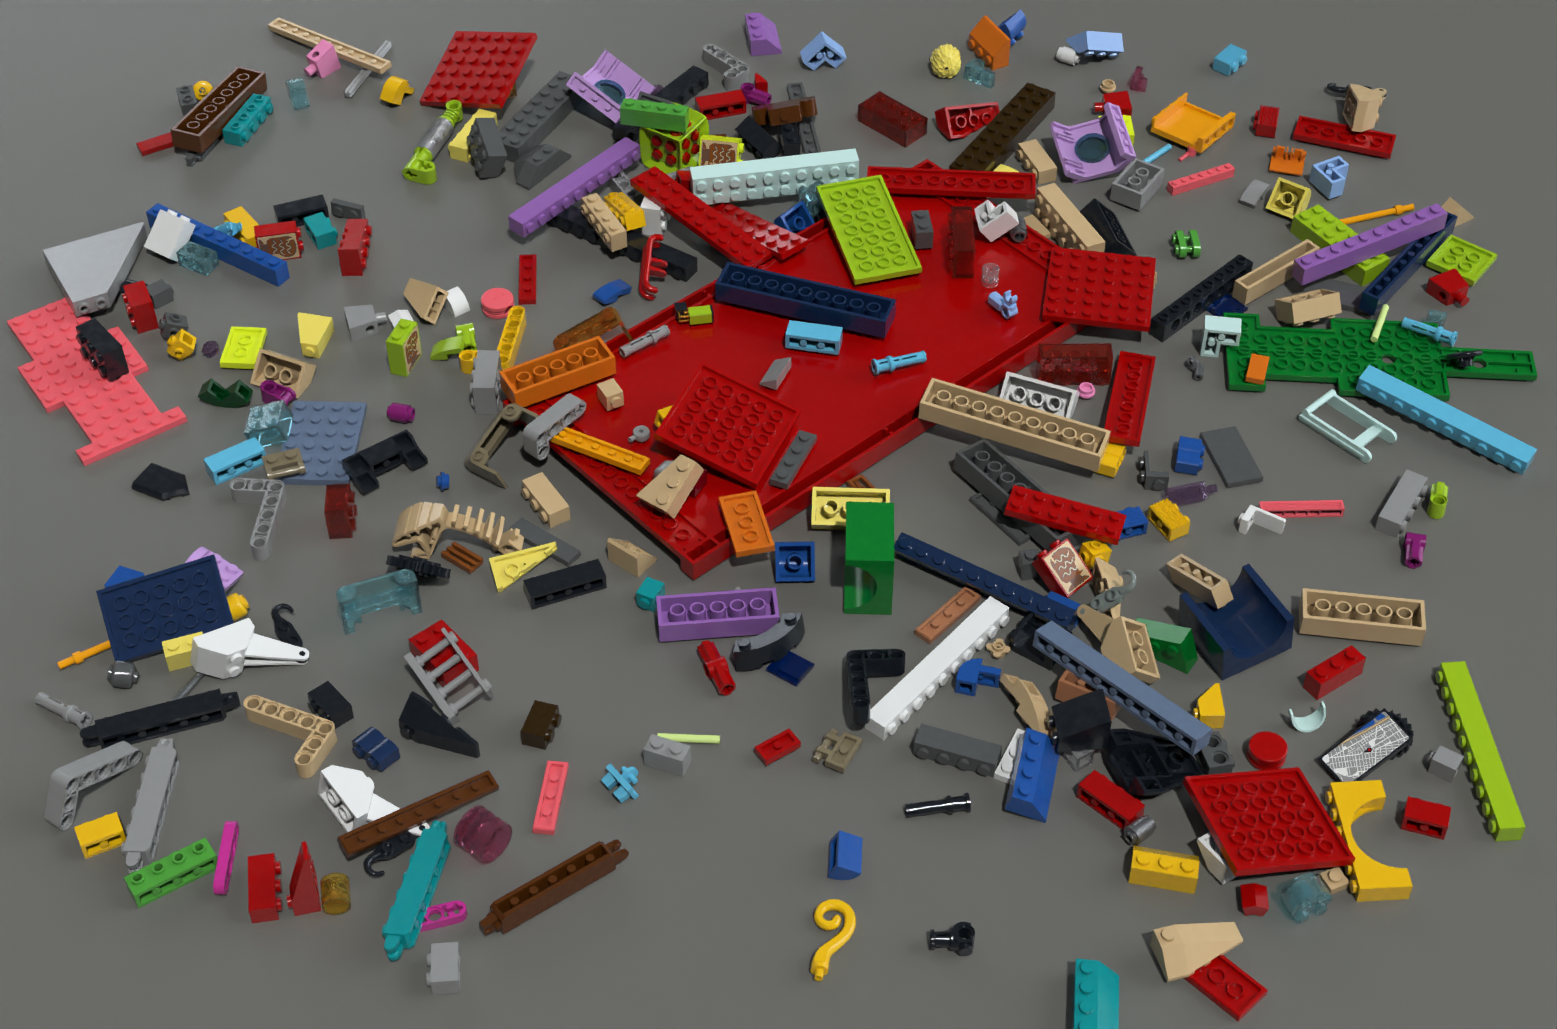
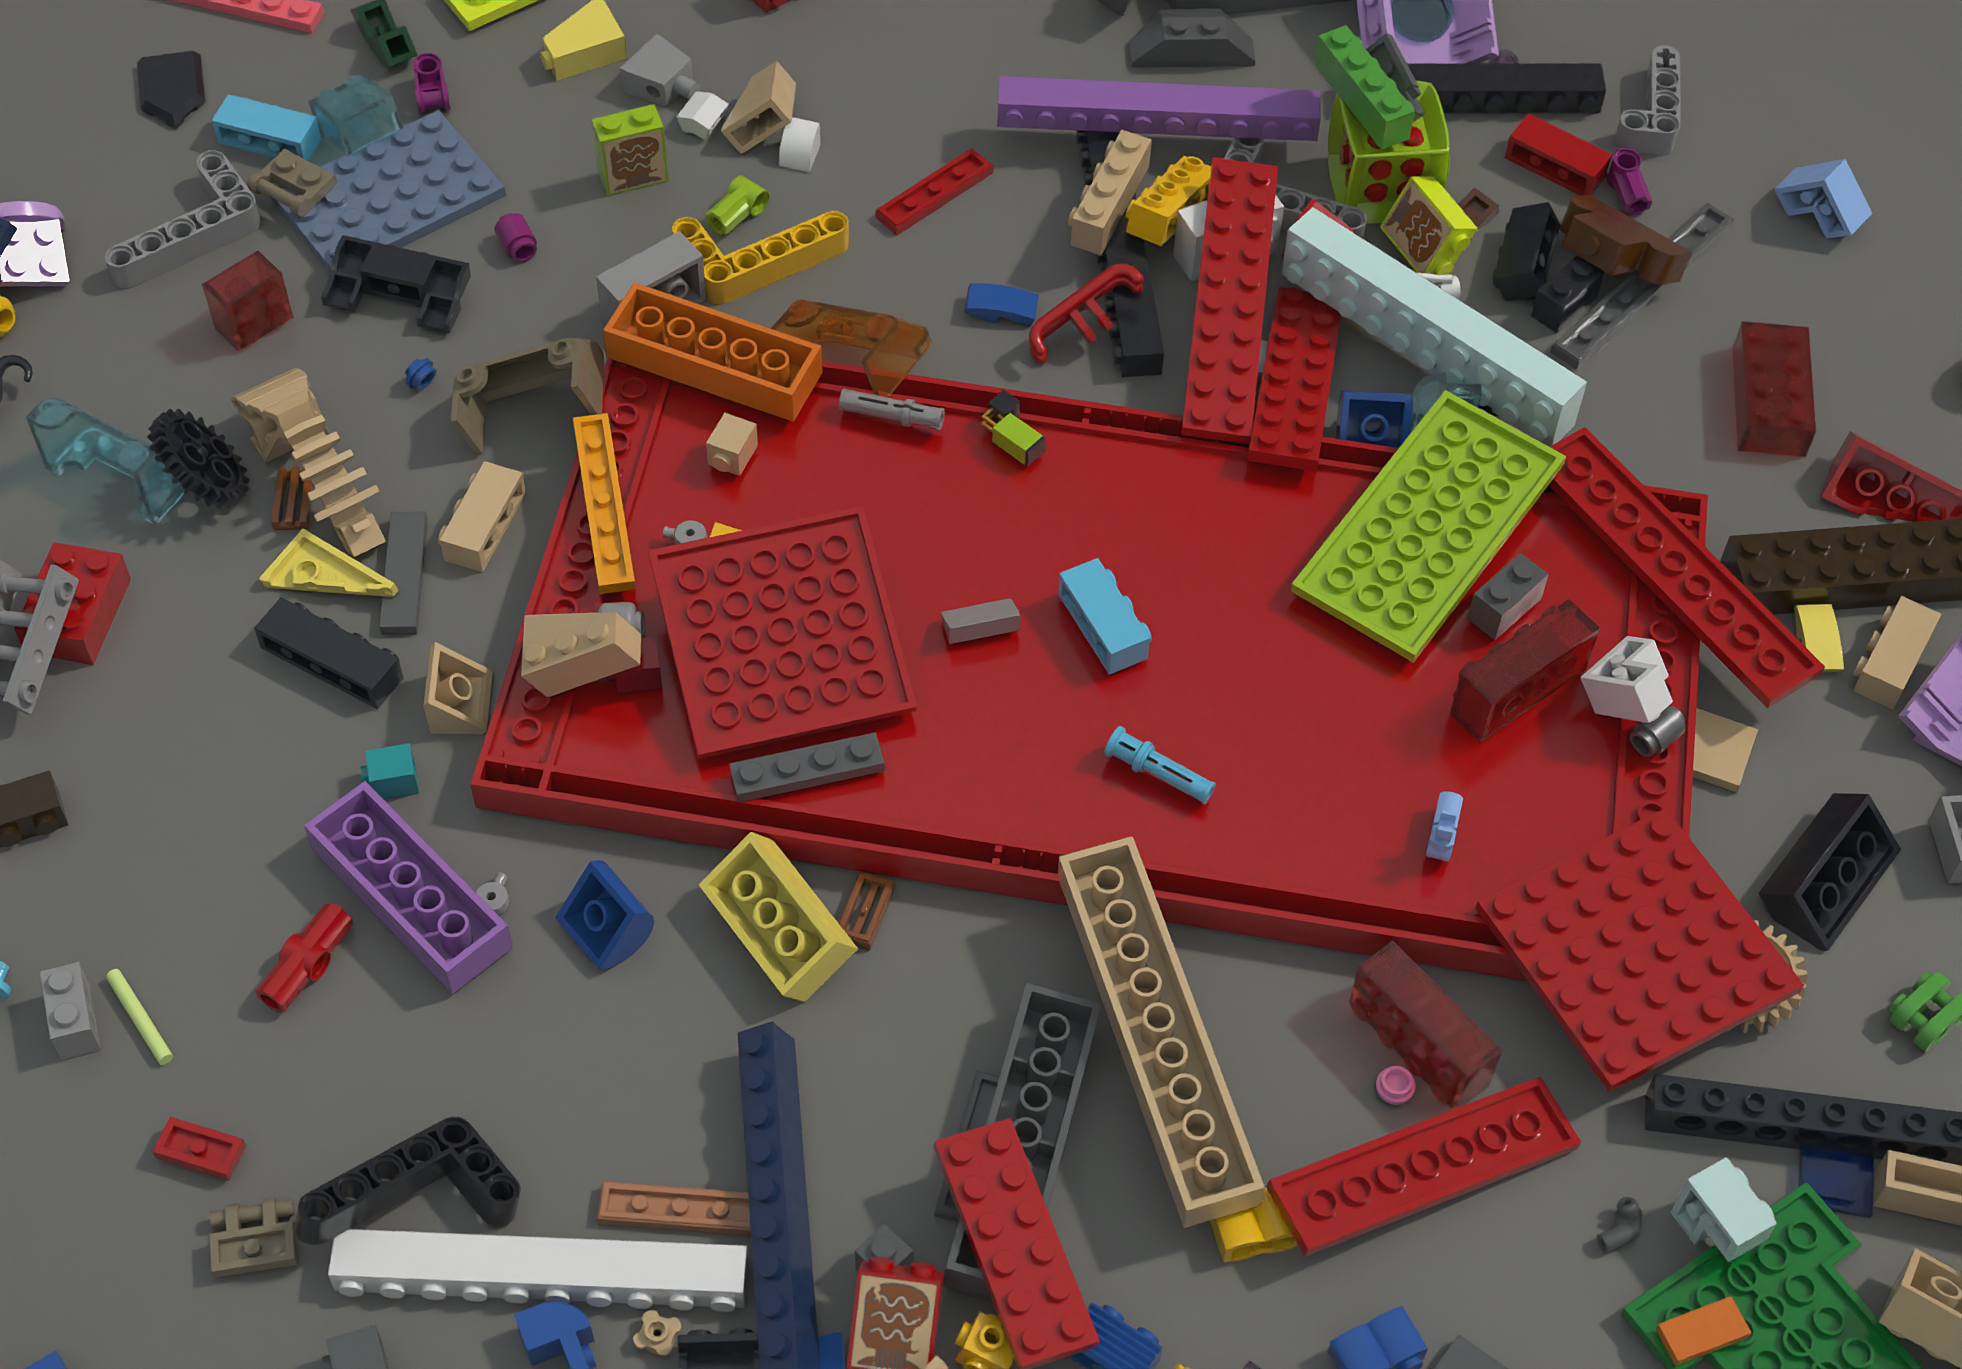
camera: 50 degrees right, 10 degrees up
(282, 370) = (479, 61): tan slope -> none
(448, 346) = (692, 199): lime slope -> none
(497, 303) = (845, 189): coral head -> none
(550, 423) = (595, 414): light grey beam -> none
(746, 524) = (602, 797): orange plate -> none
(760, 83) = (1663, 173): red slope -> none
(761, 35) = (1784, 97): medium lavender slope -> none
(770, 645) = (403, 1001): black brick -> none
(791, 668) = (392, 1057): clear blue piece -> none
(805, 299) = (1174, 553): dark blue brick -> none
(869, 558) = (657, 1011): green piece -> none
(990, 275) = (1497, 763): clear wheel -> none
(1039, 394) = (1302, 1024): white slope -> none
(1065, 220) = (1766, 794): tan brick -> none
(1152, 479) = (1262, 1334): dark grey bracket -> none

